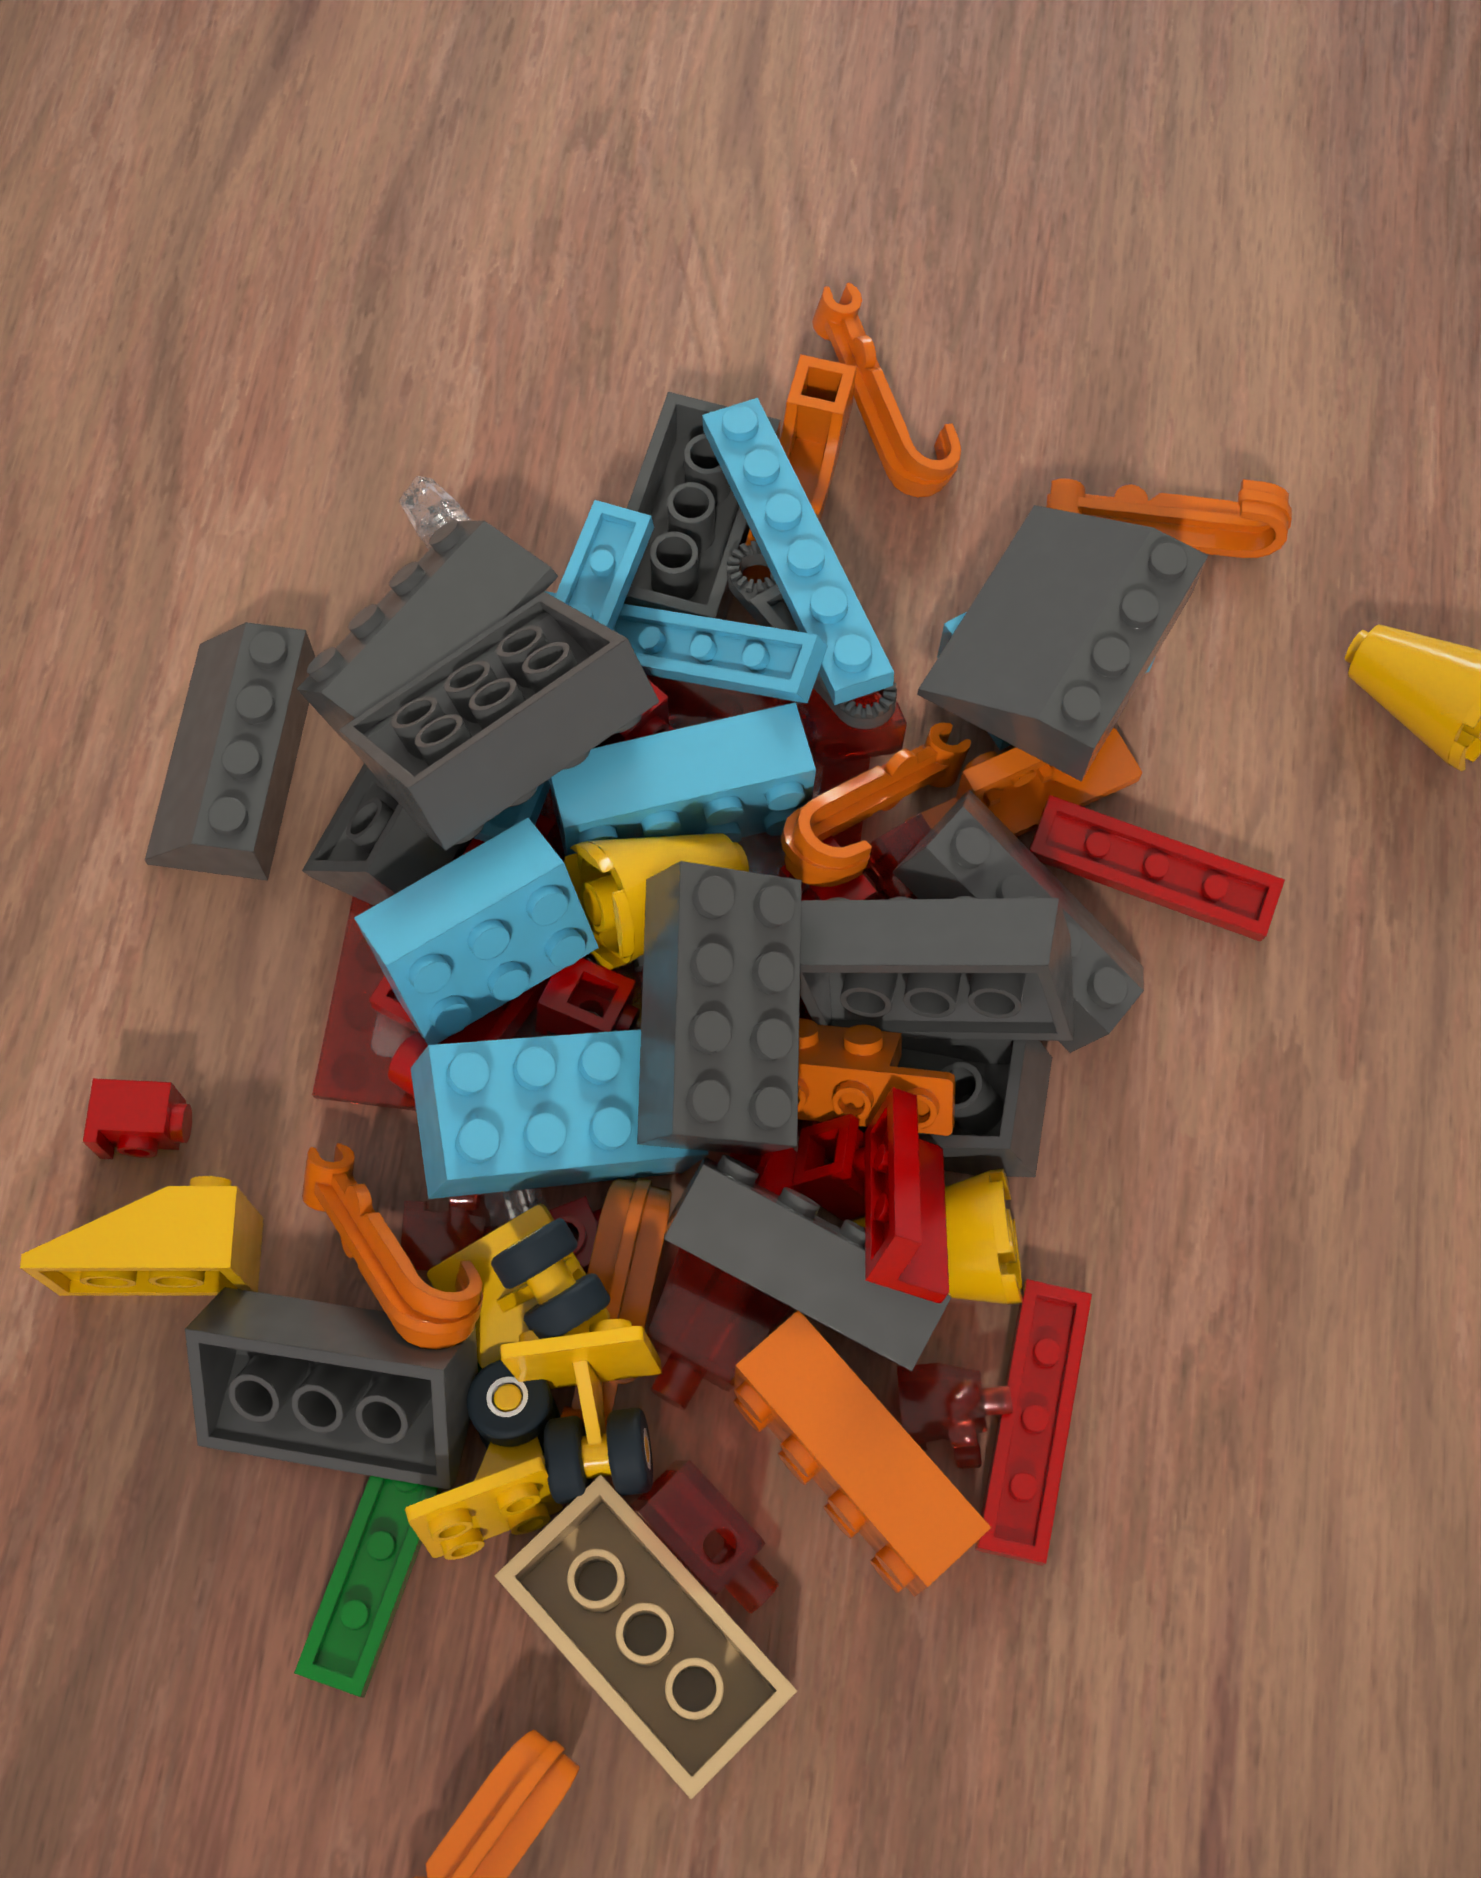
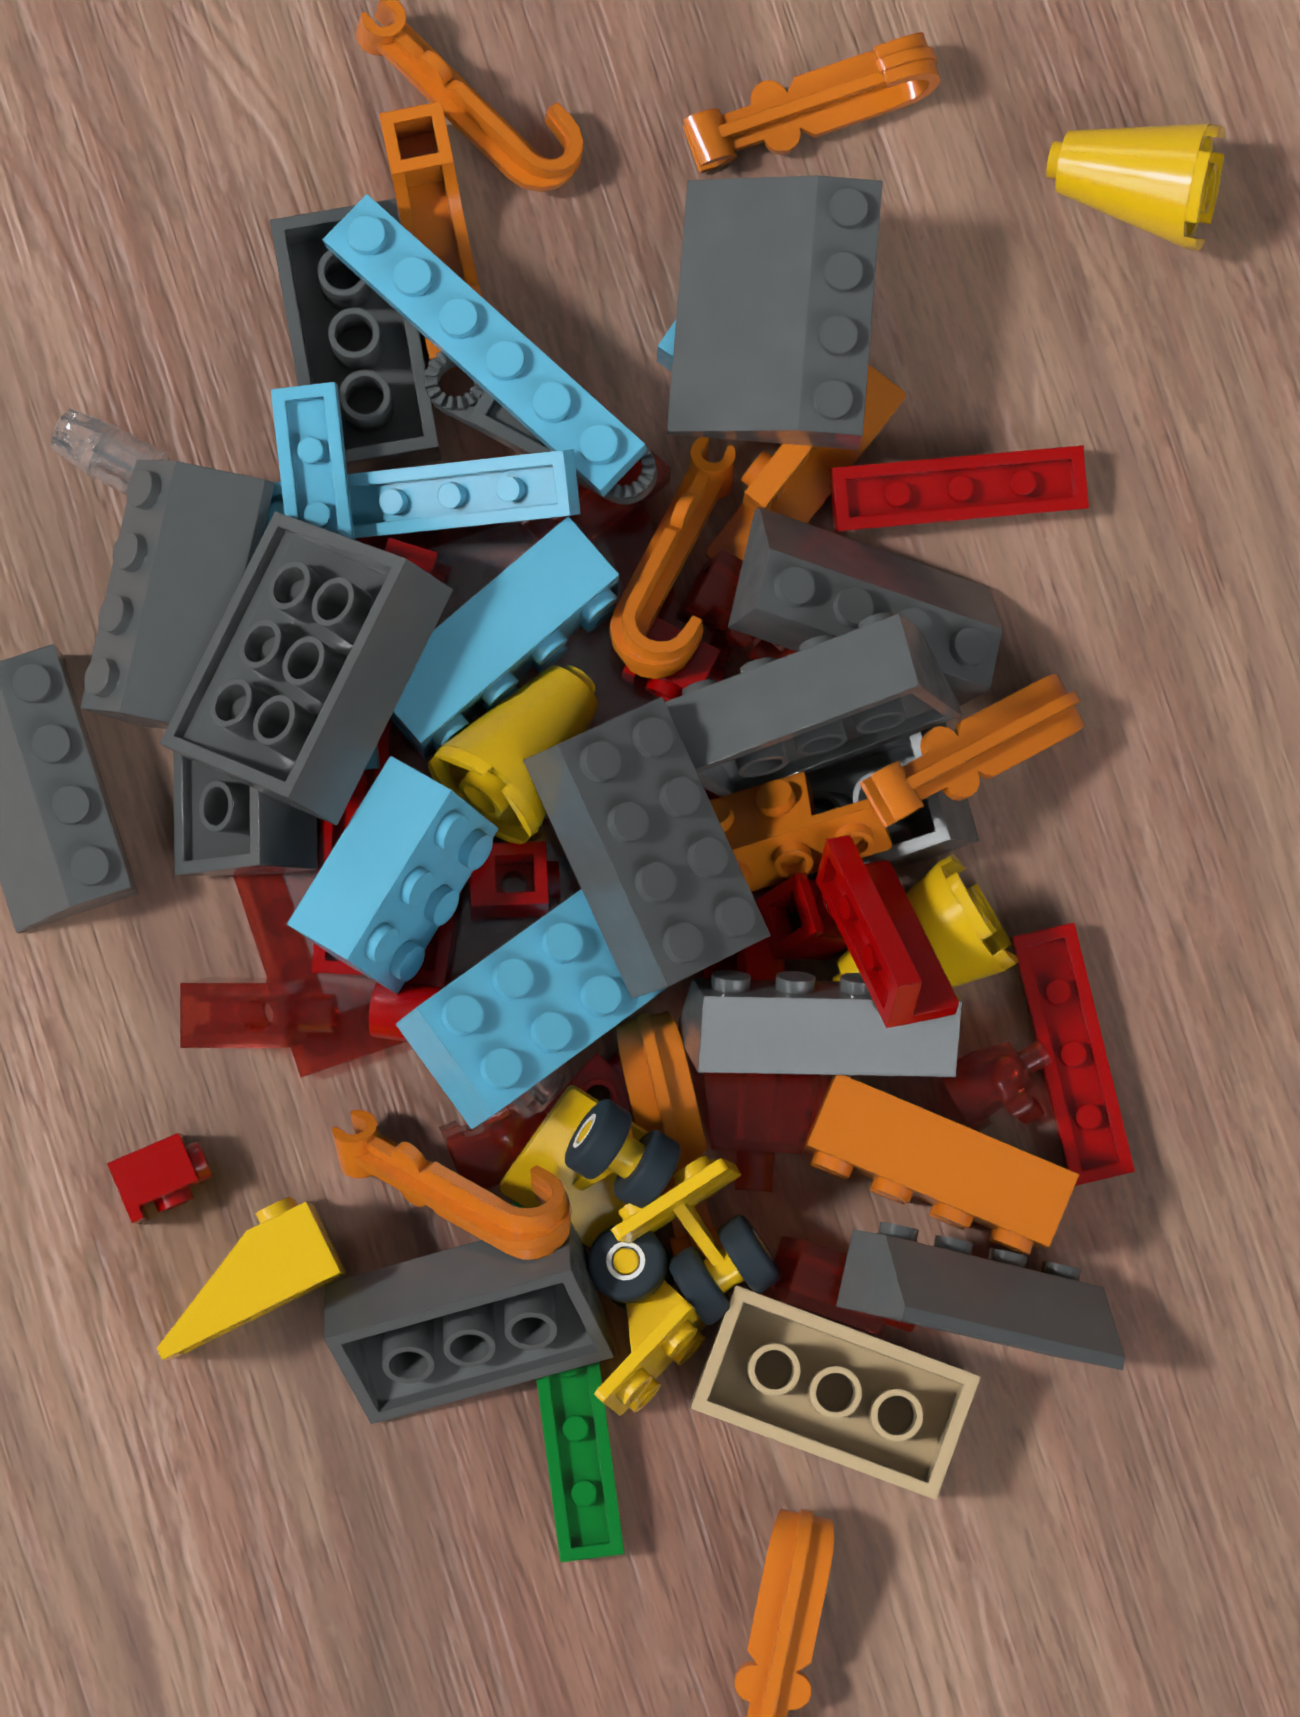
camera: 30 degrees left, 15 degrees up
(291, 1005) = (233, 1015): none -> clear red torso
(834, 1607) = (979, 1297): none -> dark grey slope
(1083, 1080) = (978, 748): none -> orange piece

